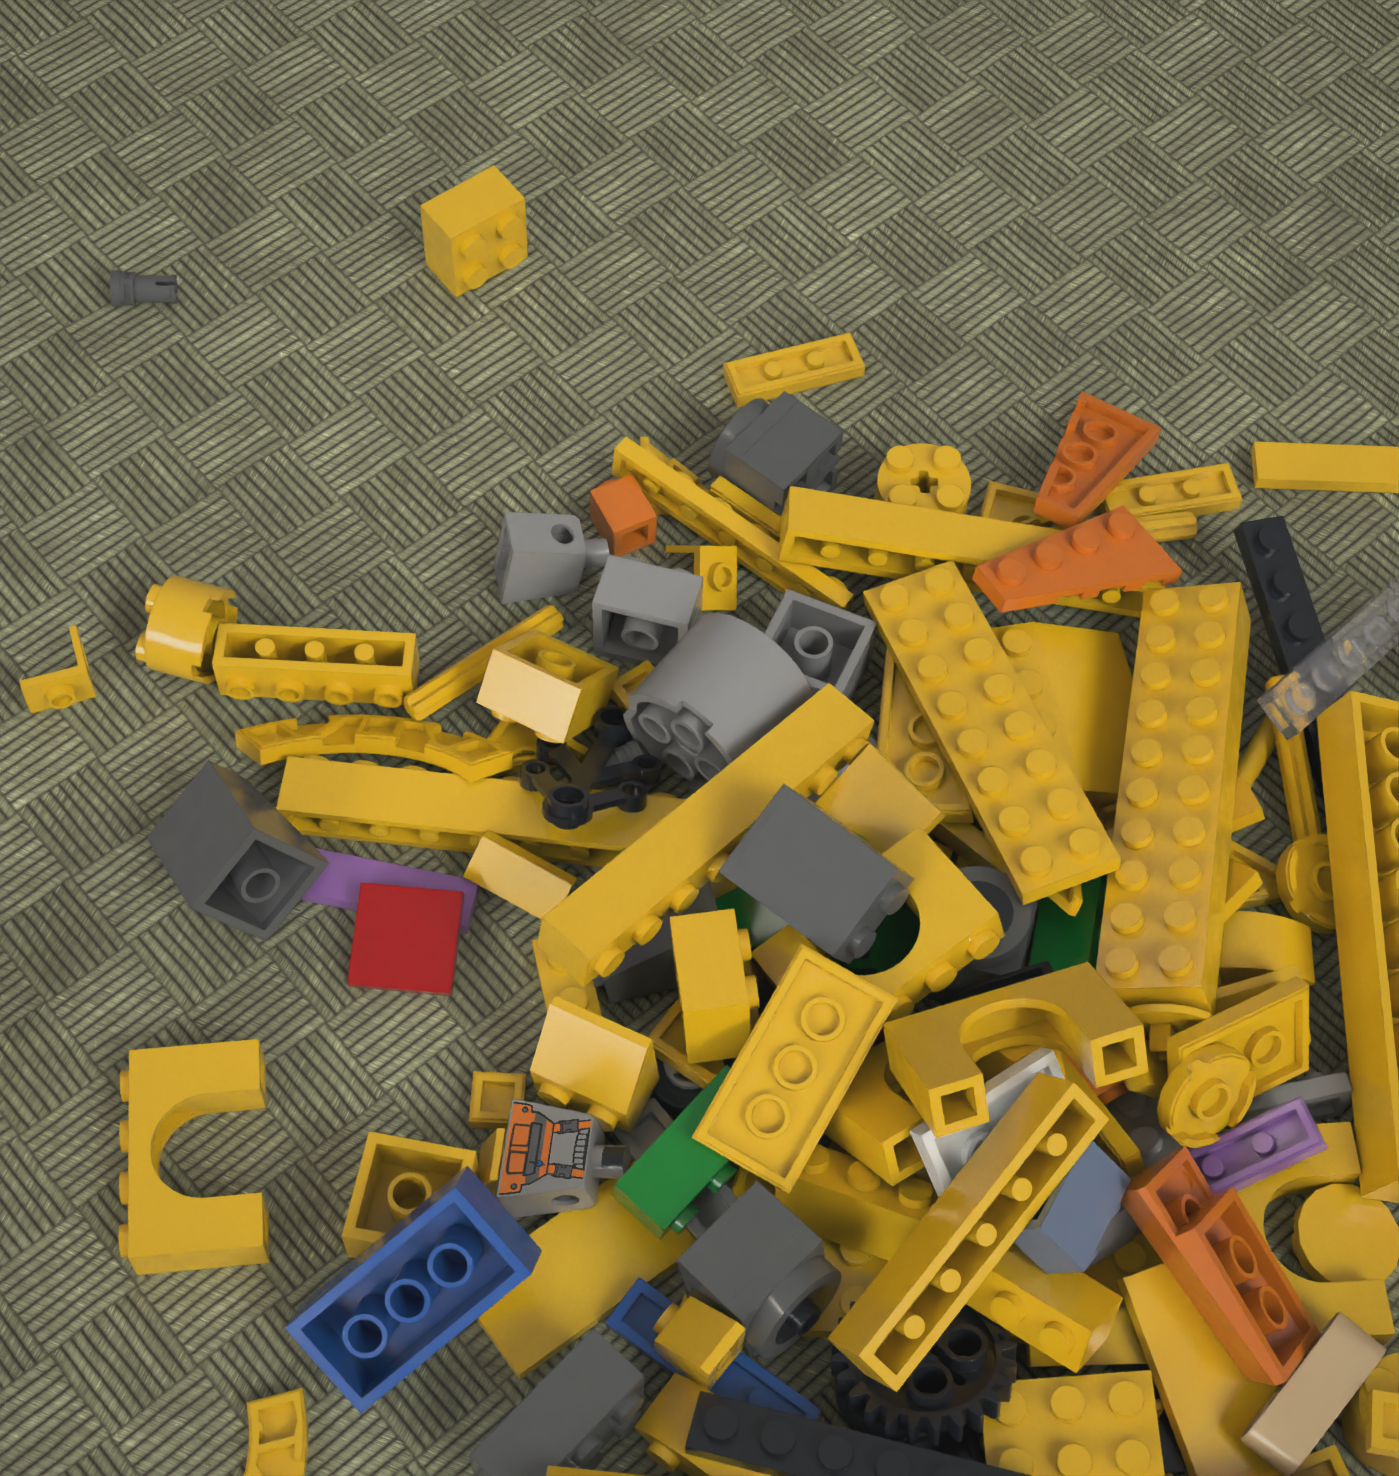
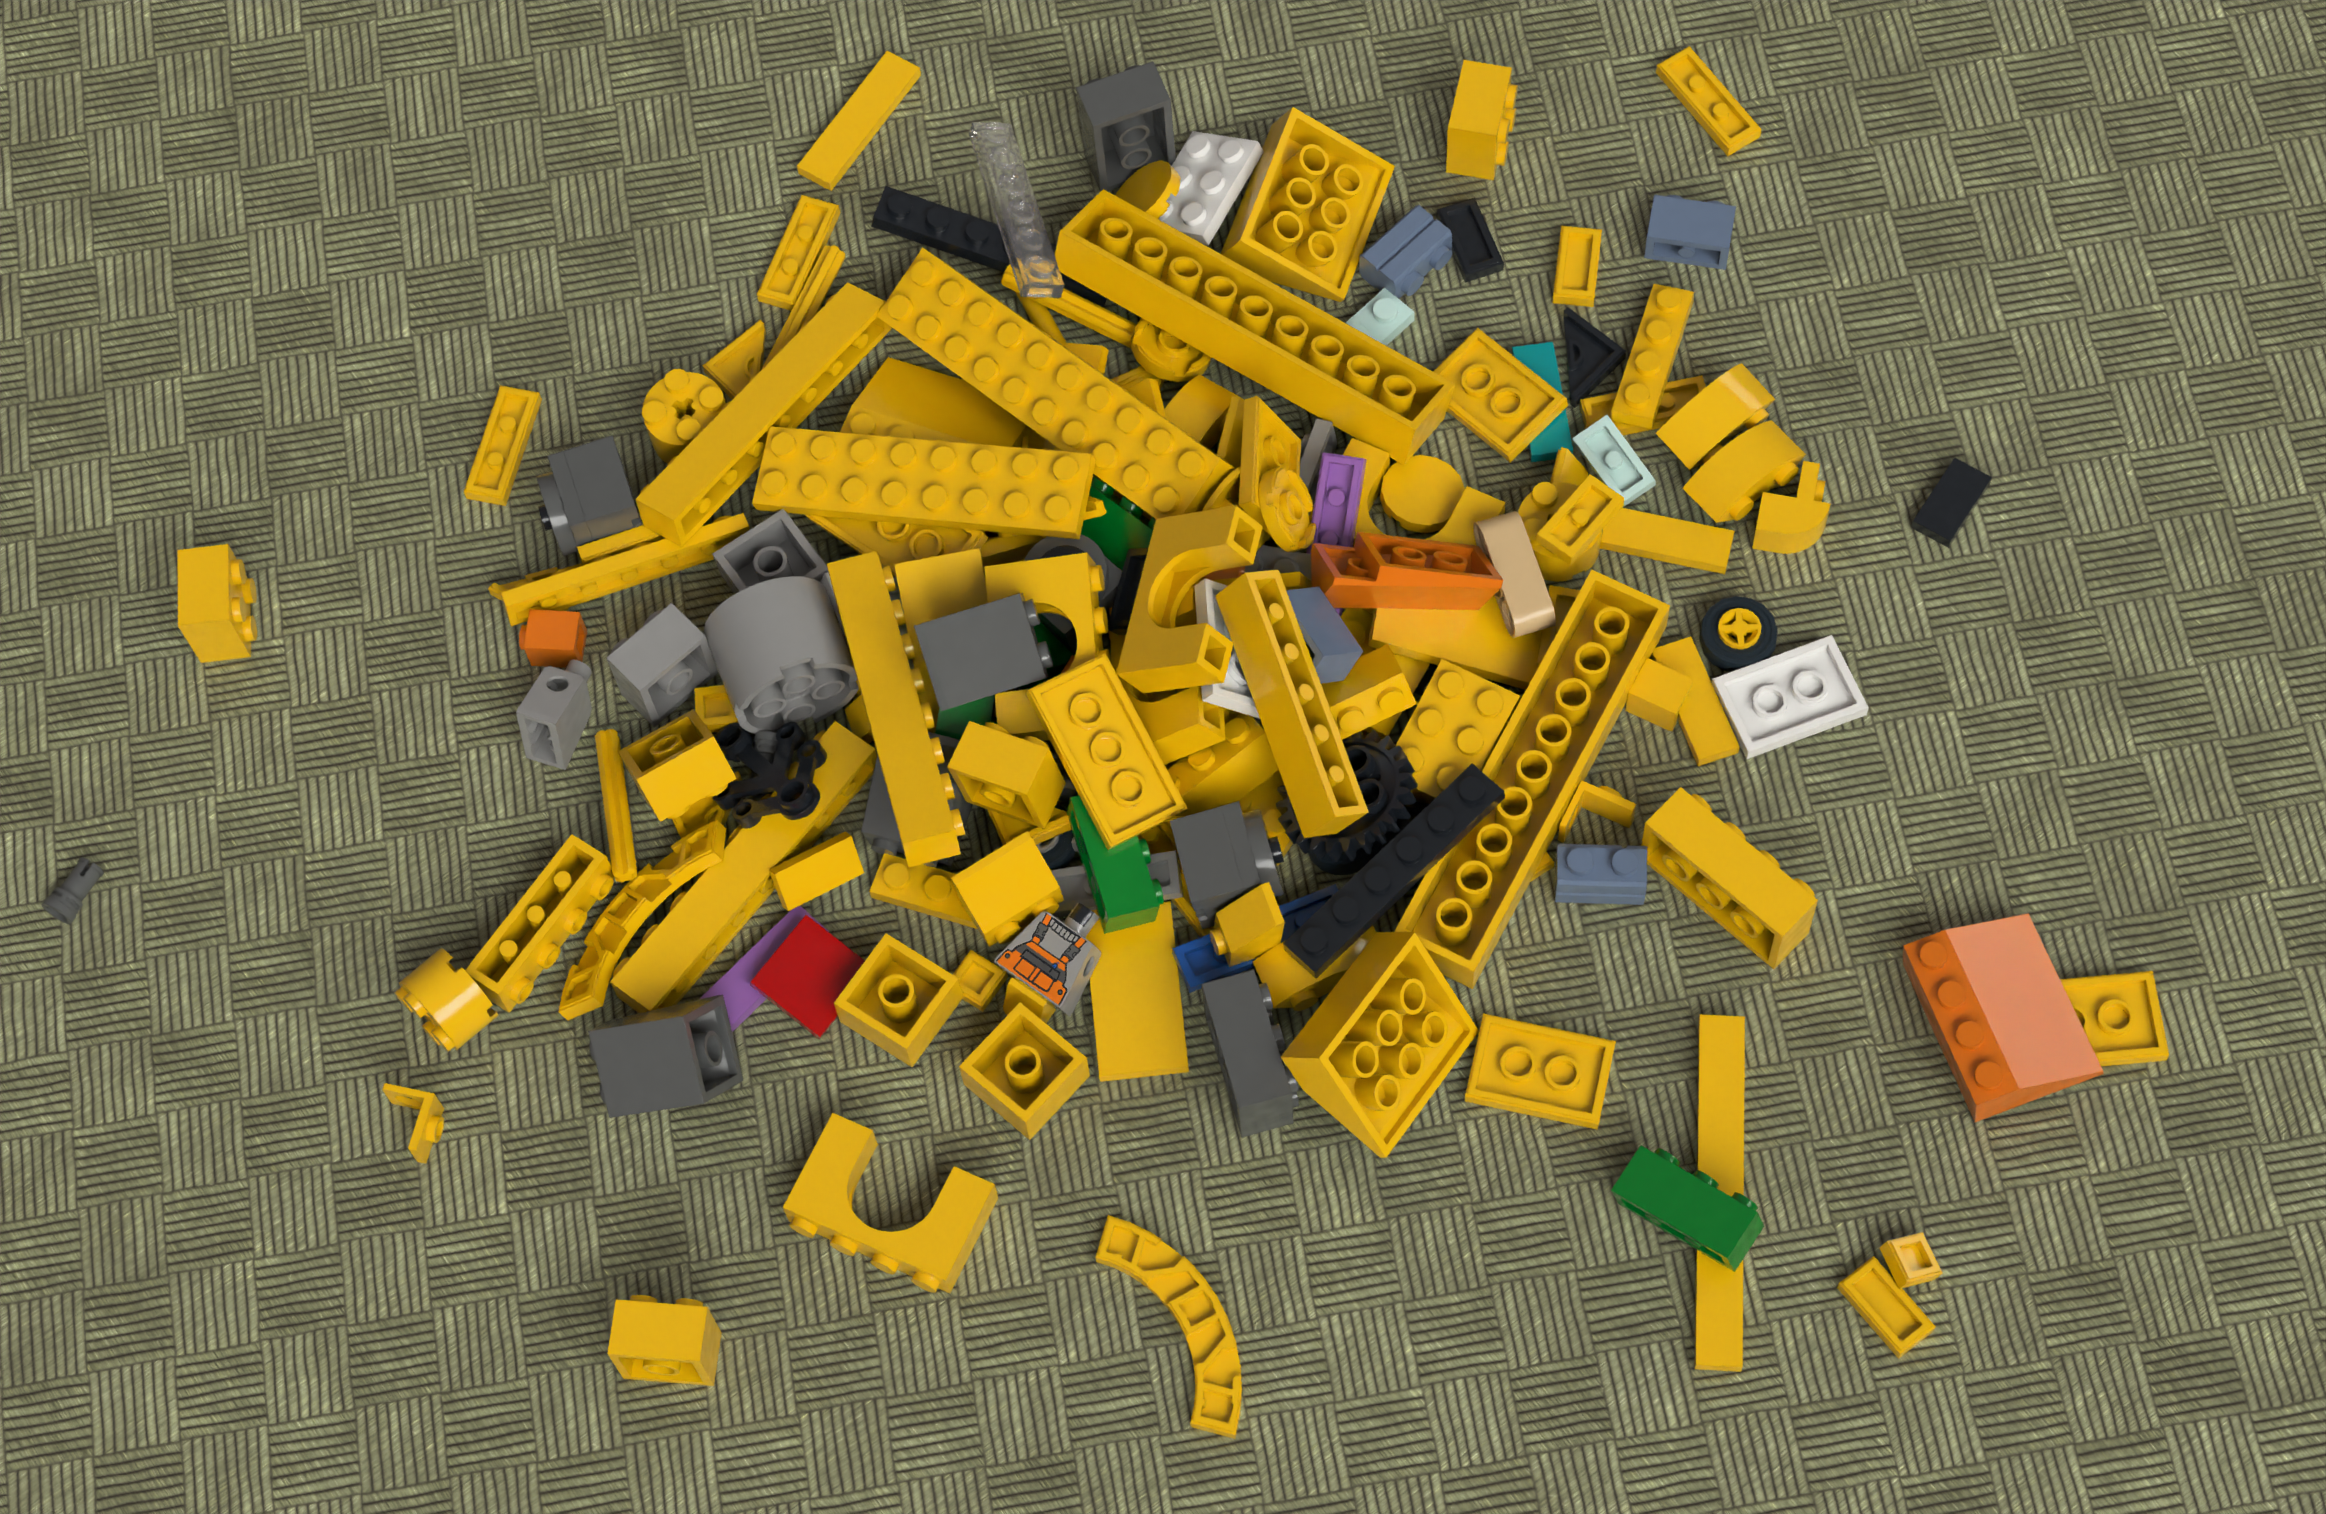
camera: 50 degrees left, 5 degrees up
(414, 1289) = (1099, 1088): blue brick -> none
(420, 1033) = (898, 1000): none -> yellow brick
(719, 574) = (647, 595): yellow bracket -> none
(1077, 561) = (829, 344): orange wing -> none
(1092, 459) = (738, 284): orange wing -> none

